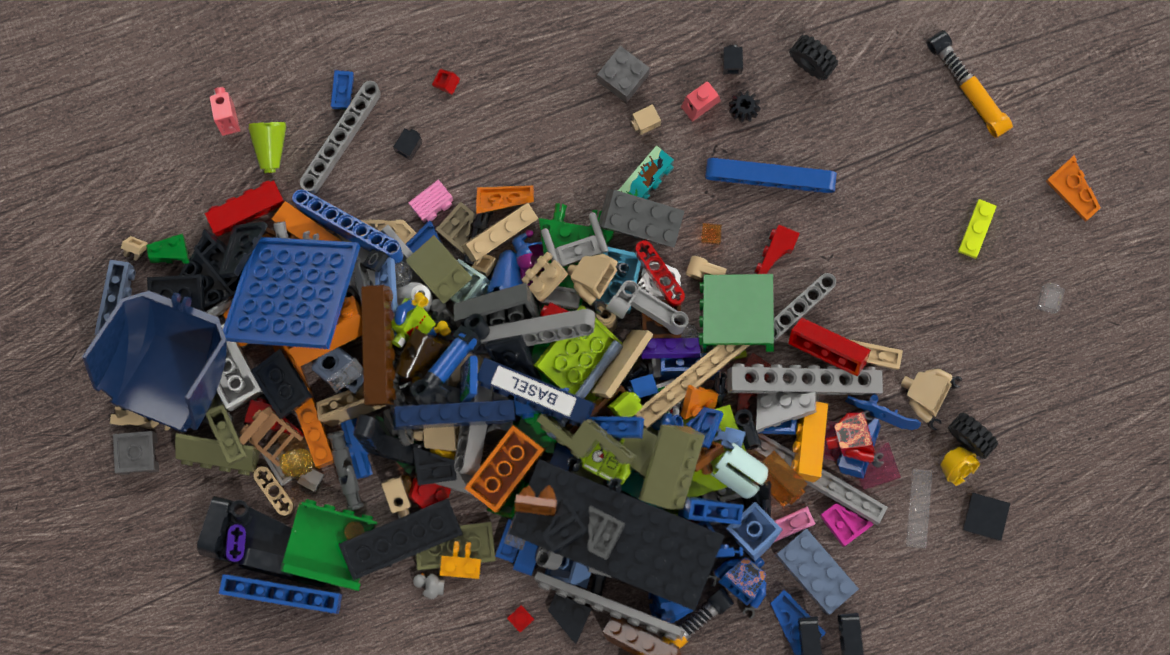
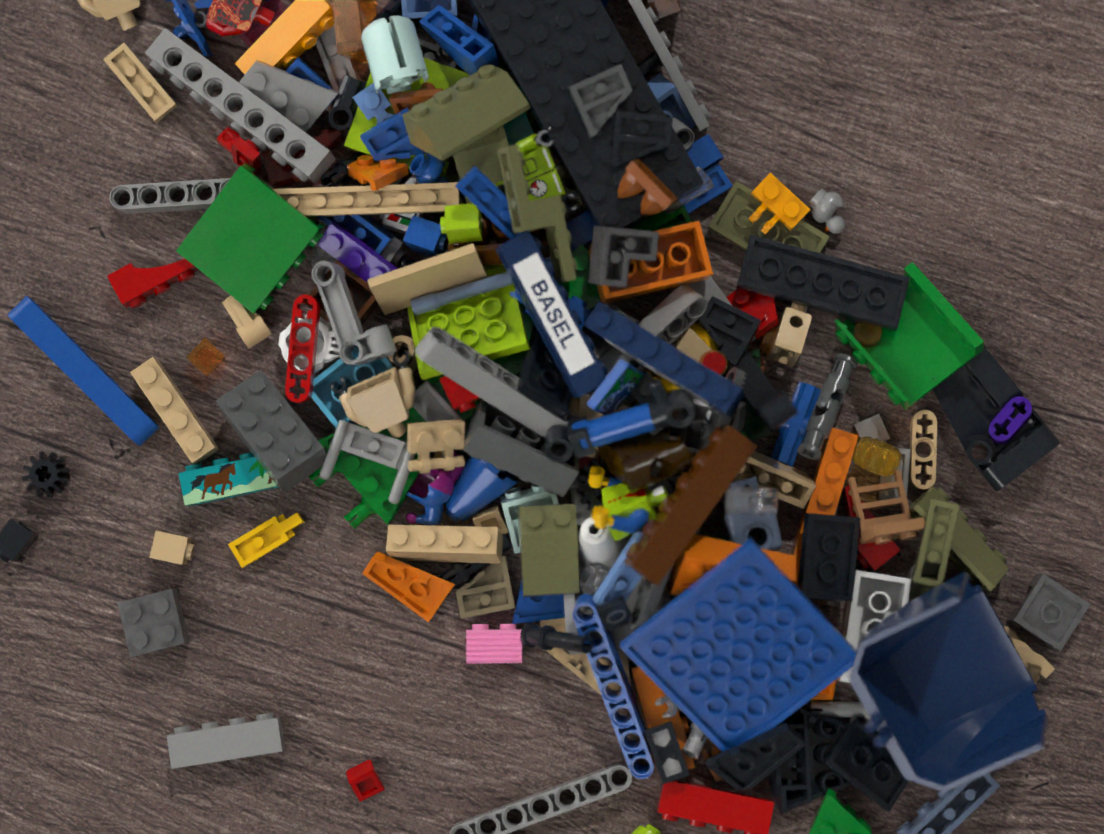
camera: 145 degrees left, 5 degrees up
(280, 594) = (1001, 326): blue brick -> none
(292, 213) = (666, 752): none -> black piece
(403, 224) = (548, 638): none -> black pin
(408, 143) = (467, 736): black brick -> none
(426, 440) = (715, 361): none -> red tile
(520, 618) = (755, 99): red plate -> none
(527, 455) = (613, 250): none -> flat silver brick
(535, 44) = (225, 742): none -> light grey brick
(569, 615) = (701, 61): black wing -> none
(600, 163) = (264, 538): none -> yellow hinge
(701, 100) = (92, 519): coral torso -> none
(703, 191) = (174, 410): none -> tan brick
(780, 358) = (242, 150): none -> red hinge
(829, 346) = (180, 122): red brick -> none

